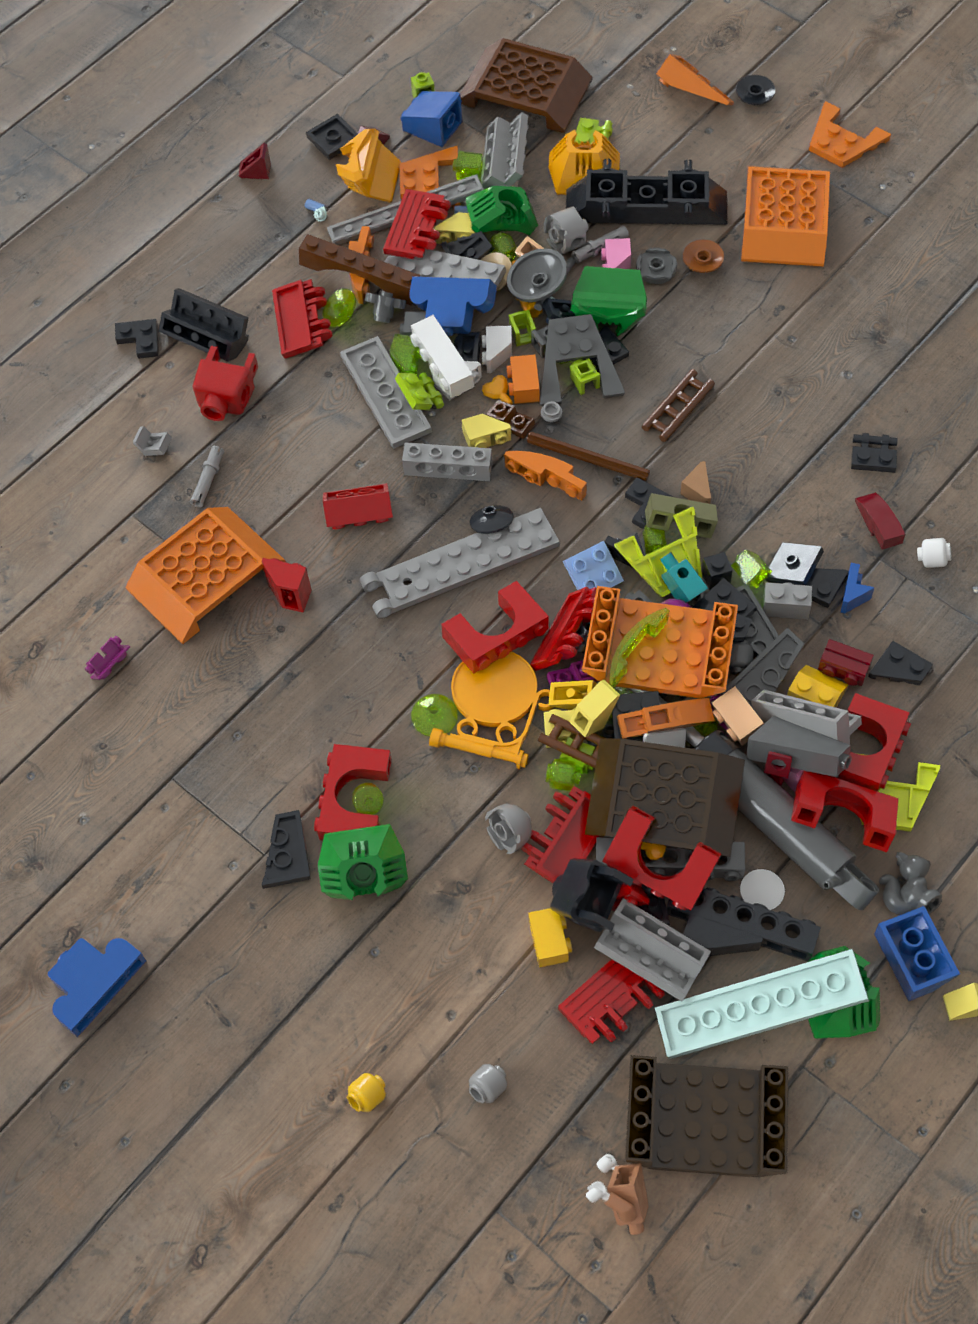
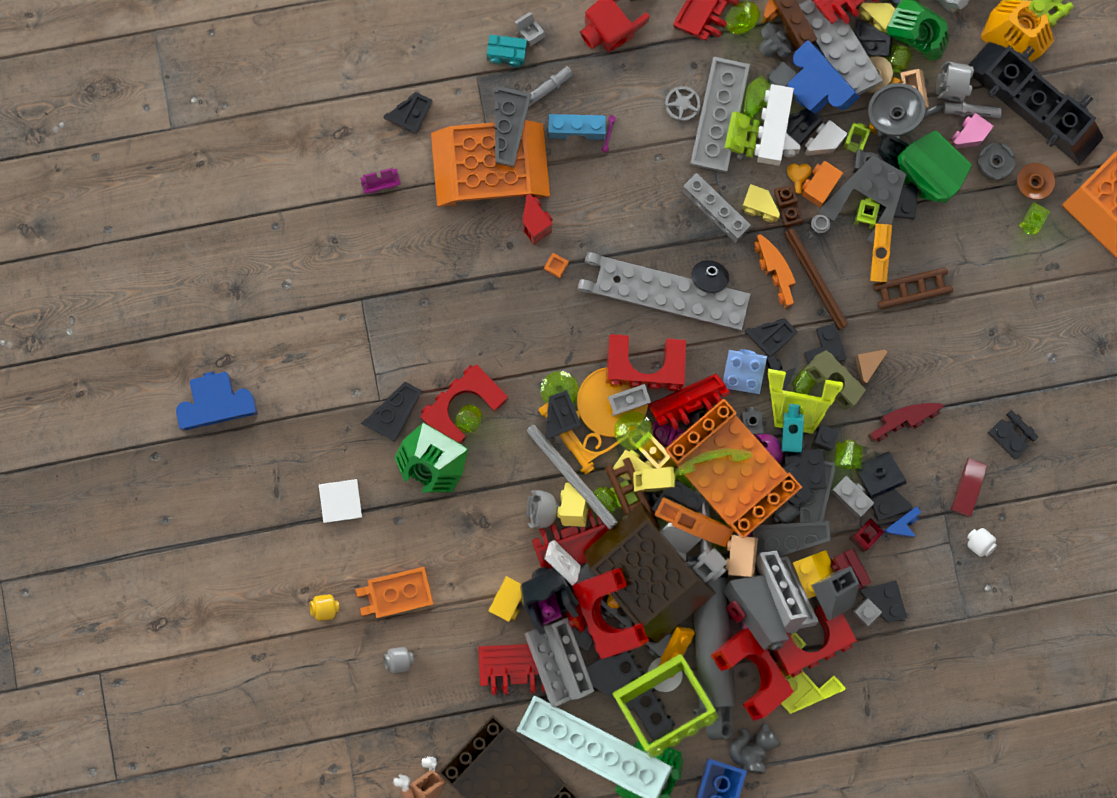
camera: 30 degrees right, 20 degrees up
(91, 584) = (410, 113): none -> black wing
(143, 472) = (506, 50): none -> teal brick
(193, 514) = (510, 118): none -> dark grey wing
(247, 493) = (584, 125): none -> dark azure arch
(290, 464) = (611, 119): none -> magenta hinge
(299, 977) = (340, 501): none -> white tile
(339, 613) = (556, 265): none -> orange tile
(344, 407) = (682, 103): none -> light grey wheel
(357, 506) = (629, 192): red slope -> none
(430, 1021) = (396, 593): none -> orange tile
(455, 728) = (560, 415): none -> black wing
(510, 666) = (629, 400): none -> light grey panel
(514, 773) = (572, 477): none -> light grey axle
(539, 700) = (636, 438): none -> clear neon green dish
(540, 798) = (573, 507): none -> light yellow slope
(573, 852) = (563, 562): none -> white tile
(591, 526) = (772, 336): none -> black wing
(597, 903) = (549, 609): none -> magenta hinge
(618, 382) = (882, 239): none -> light orange piece
(717, 737) = (710, 565): none -> light grey brick
(729, 282) = (1034, 219): none -> clear neon green brick
(754, 855) = (678, 644): none -> light orange hinge
(757, 888) = (652, 679): none -> lime window
(770, 504) = (910, 416): none -> dark red slope
(830, 625) = (866, 535): none -> dark red slope
(852, 680) = (837, 592): none -> dark grey slope
(893, 685) = (866, 612): none -> light grey brick

